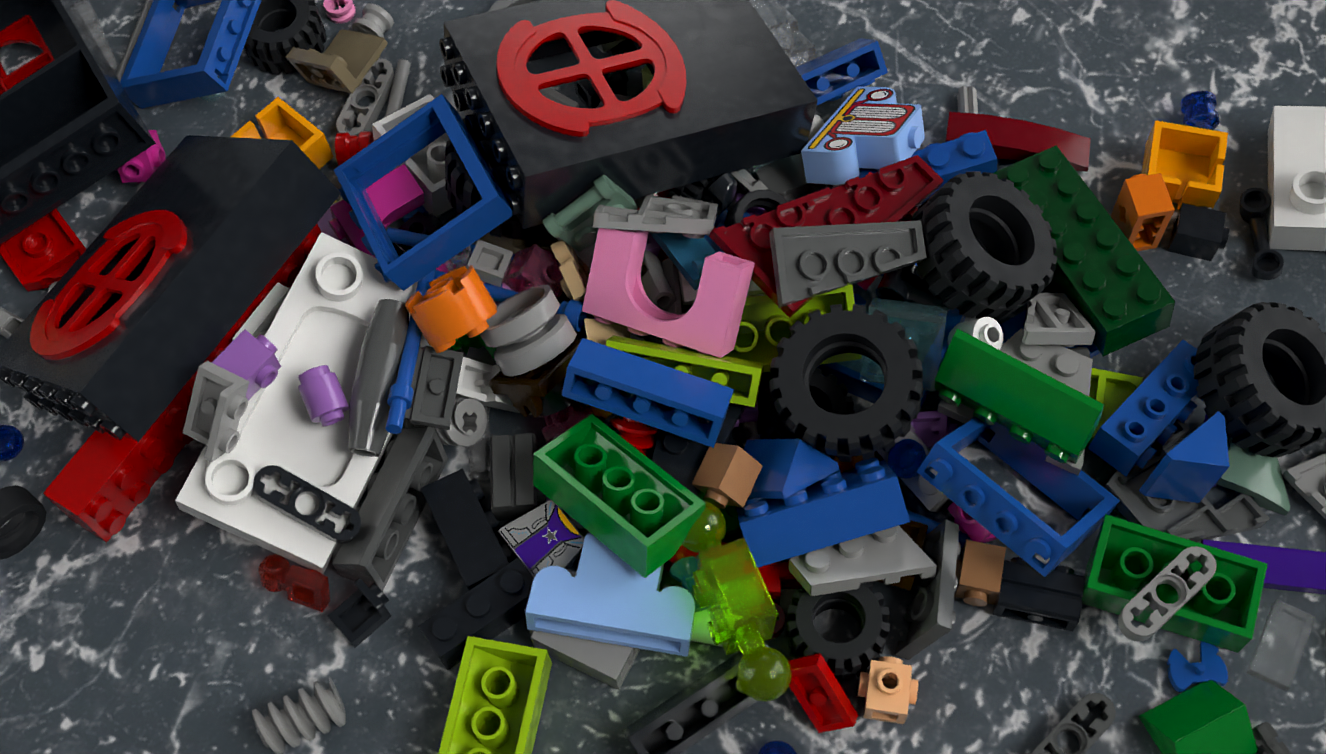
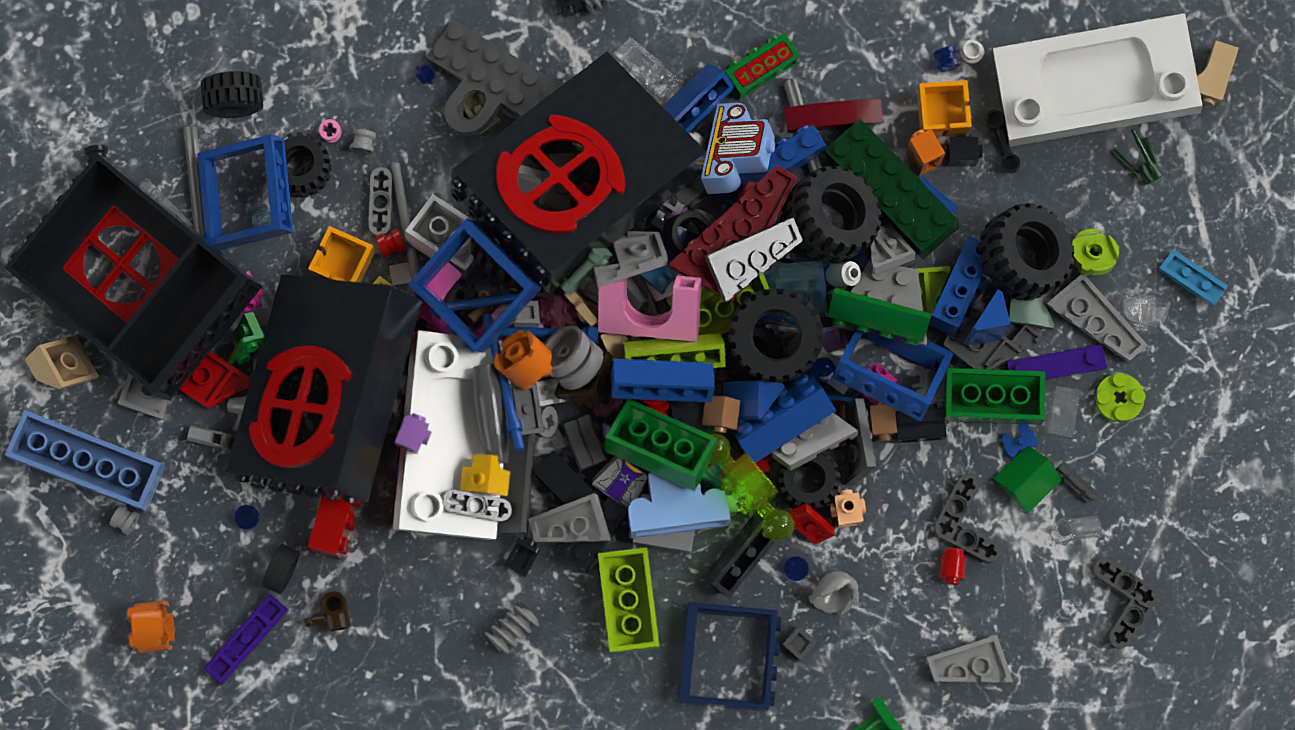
camera: 25 degrees left, 15 degrees up
(47, 621) = (333, 620): none -> dark brown piece
(102, 206) = (245, 339): none -> green bracket
(216, 409) = (408, 468): light grey bracket -> none
(302, 585) = (479, 550): clear red plate -> none
(322, 395) = (462, 437): medium lavender brick -> none
(336, 464) = (485, 476): none -> yellow brick
(342, 63) = (355, 177): dark tan bracket -> none
(446, 578) = (571, 522): none -> light grey wing
(935, 60) = (762, 65): none -> green brick
(1155, 620) = (988, 427): light grey beam -> none
(1238, 113) = (971, 51): none -> white plate

